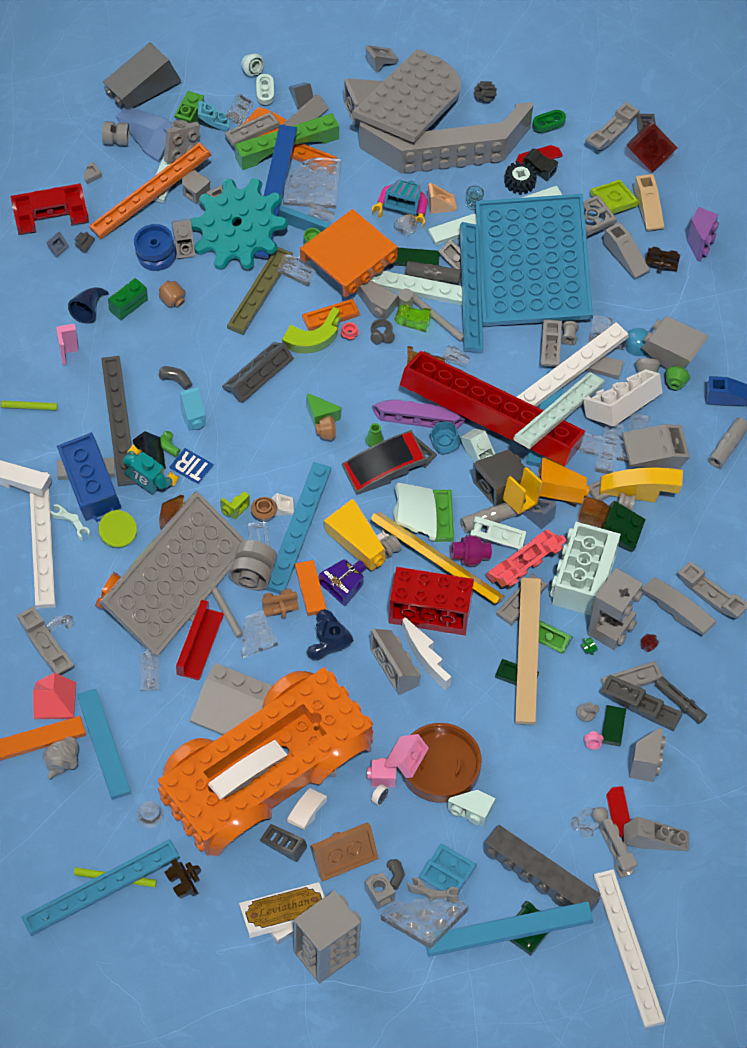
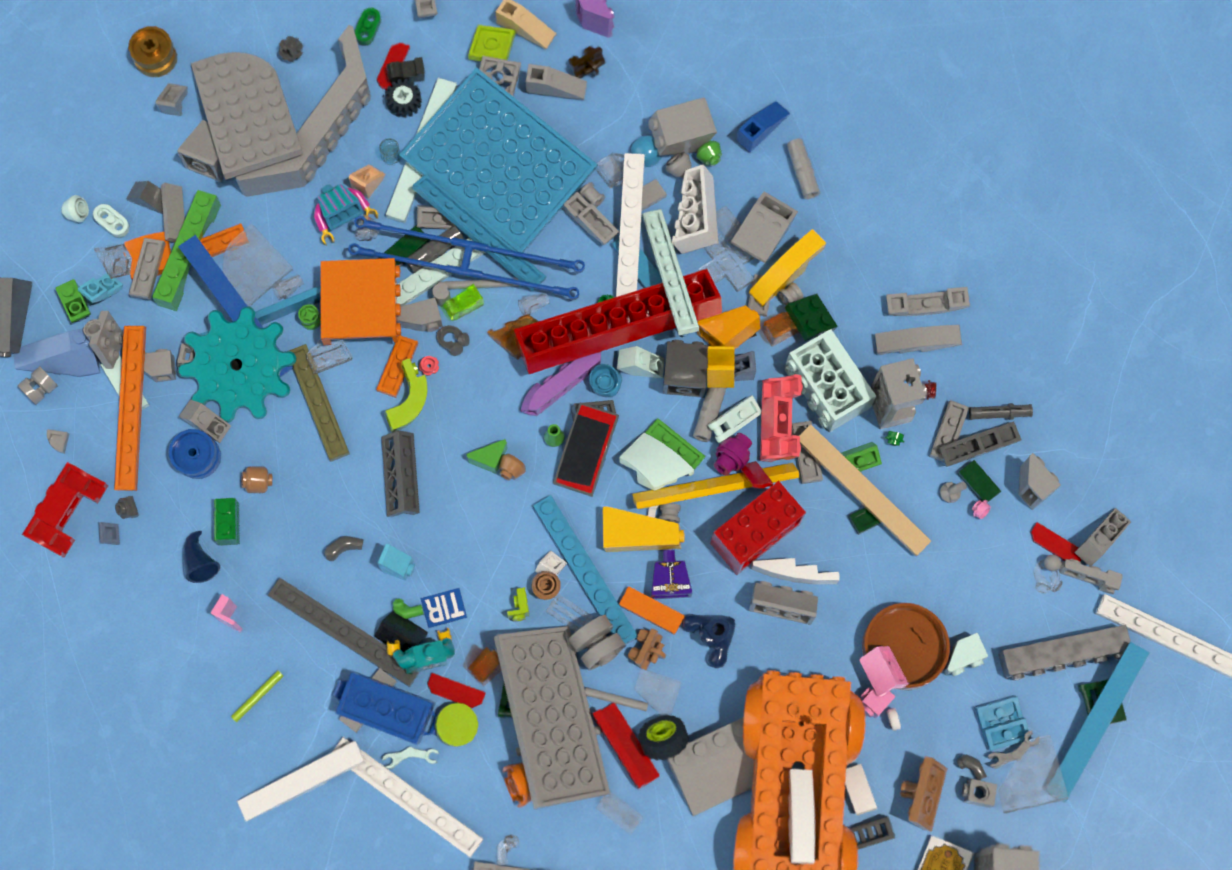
camera: 50 degrees left, 15 degrees up
(141, 514) = (455, 691): none -> red piece
(225, 653) = (663, 737): none -> black wheel
(401, 22) = (152, 51): none -> pearl gold wheel
(454, 285) = (464, 269): none -> blue bar
(468, 572) = (756, 475): none -> red piece

